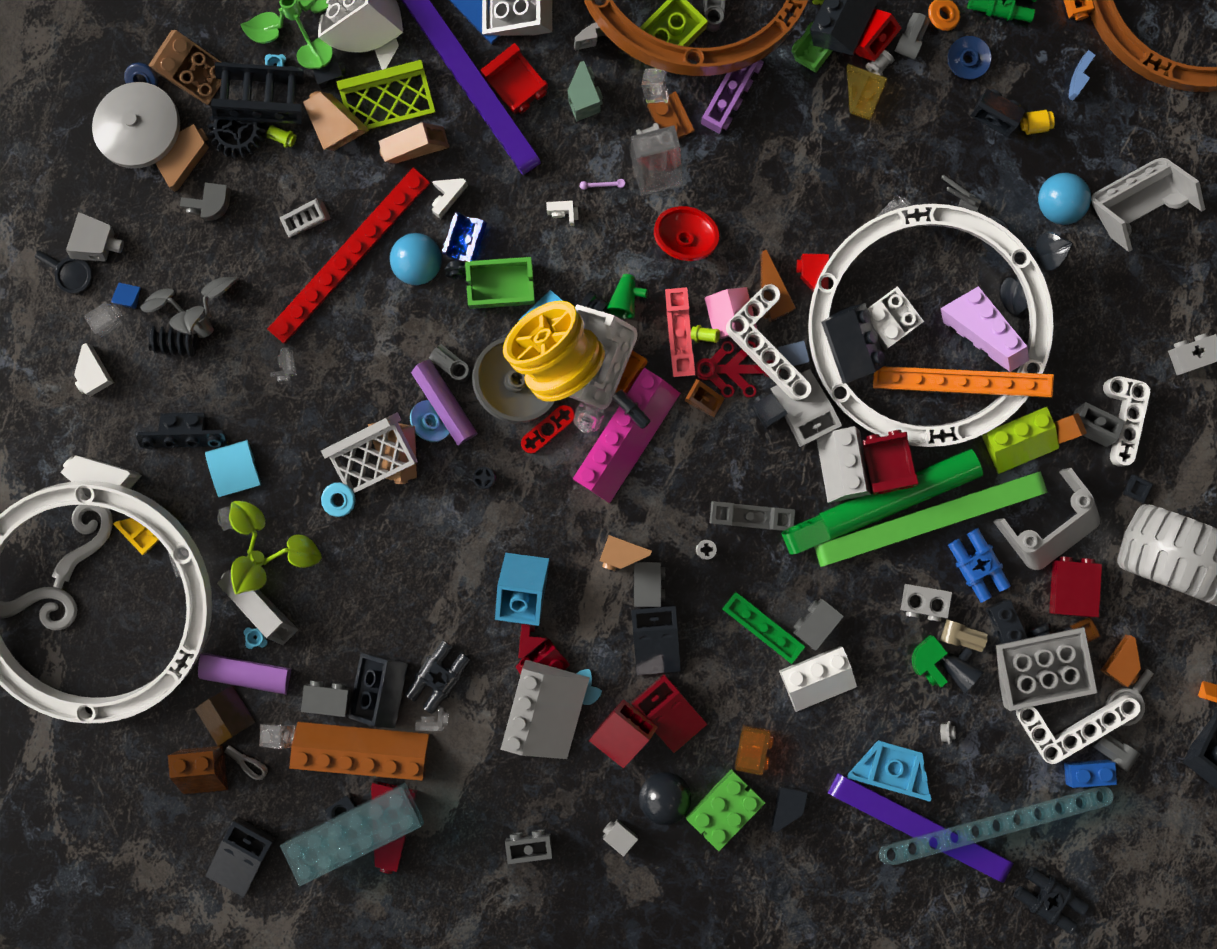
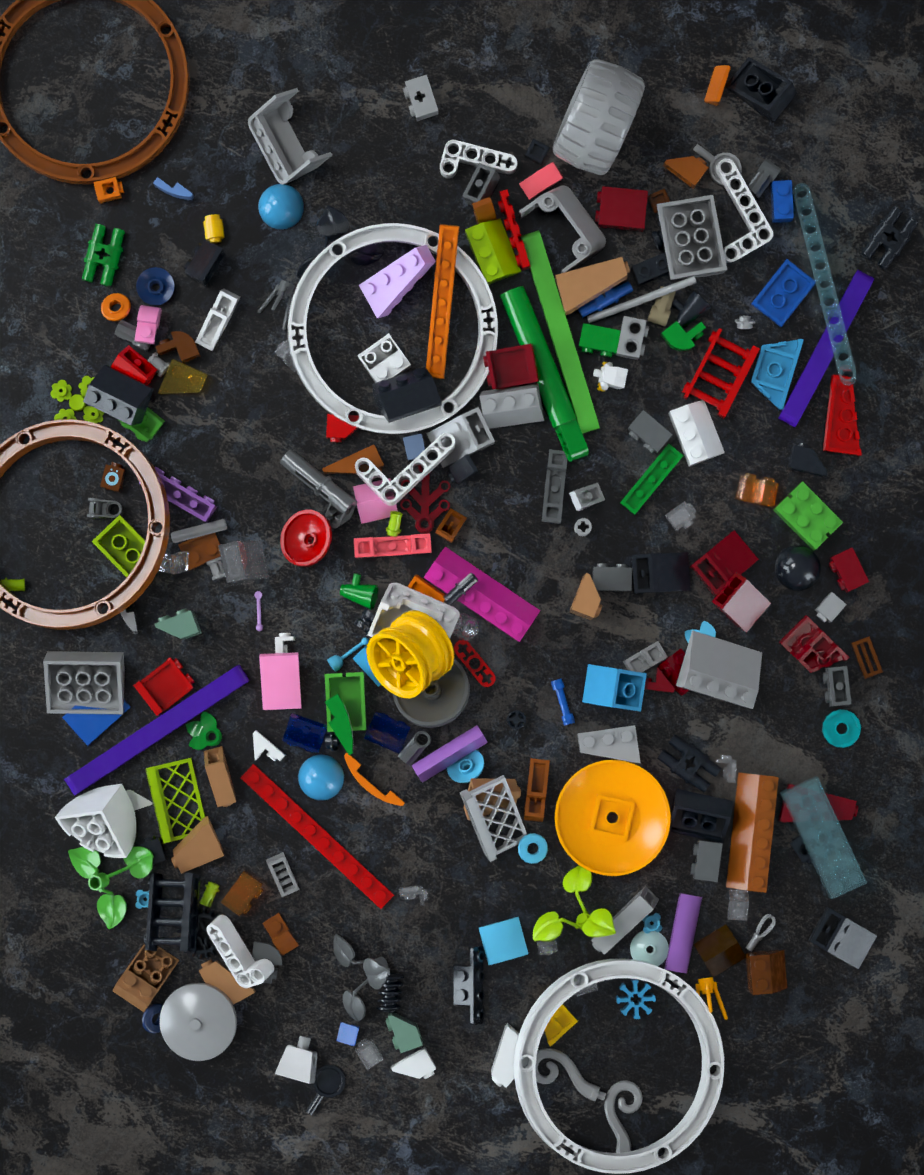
camera: 90 degrees left, 0 degrees up
(125, 358) = (405, 1032): none -> sand green slope
(166, 612) = (630, 1004): none -> dark azure gear
(184, 702) = (706, 986): none -> light orange plant
(210, 164) = (236, 955): none -> white beam
(234, 627) = (642, 941): none -> light aqua dish
(238, 217) = (280, 934): none -> dark orange slope
(282, 172) = (242, 893): none -> clear orange brick
(341, 584) = (640, 825): none -> light orange dish
(404, 502) = (536, 790): none -> dark orange slope
(429, 294) = (354, 765): none -> orange slope
(458, 586) = (611, 743): none -> light grey wedge
(466, 123) = (200, 732): none -> green plate
(467, 331) = (387, 732): none -> clear blue bracket
(474, 276) = (341, 724): none -> green slope
(481, 865) = (851, 722): none -> teal tile
(488, 536) = (558, 686): none -> blue bar
(522, 208) = (280, 681): none -> bright pink tile
(545, 887) = (861, 642): none -> reddish brown tile
(546, 272) = (336, 662): none -> medium azure hinge
(557, 625) = (645, 658): none -> light grey slope
(575, 816) = (812, 646): none -> dark red slope
(663, 858) = (848, 570): none -> dark red brick
(691, 113) = (198, 531): none -> light grey axle
(721, 663) = (681, 516): none -> clear brick
(725, 271) = (340, 502): none -> dark grey piece
(741, 553) = (587, 496): none -> light grey slope
(750, 16) = (113, 477): none -> reddish brown brick
(834, 846) = (841, 423): none -> red wing
(870, 717) = (730, 388): none -> red fence
(880, 578) = (610, 376): none -> white piece
(902, 92) = (183, 343): none -> reddish brown brick
(922, 564) = (599, 340): none -> green brick
(929, 49) = (147, 324): none -> bright pink brick
(934, 129) = (217, 319): none -> white slope
(975, 622) = (641, 299): none -> light grey piece
(983, 777) = (783, 293): none -> blue tile
(989, 549) = (589, 282): none -> medium nougat slope
(1053, 460) = (510, 224): none -> red wing
(1105, 494) = (541, 180): none -> coral slope

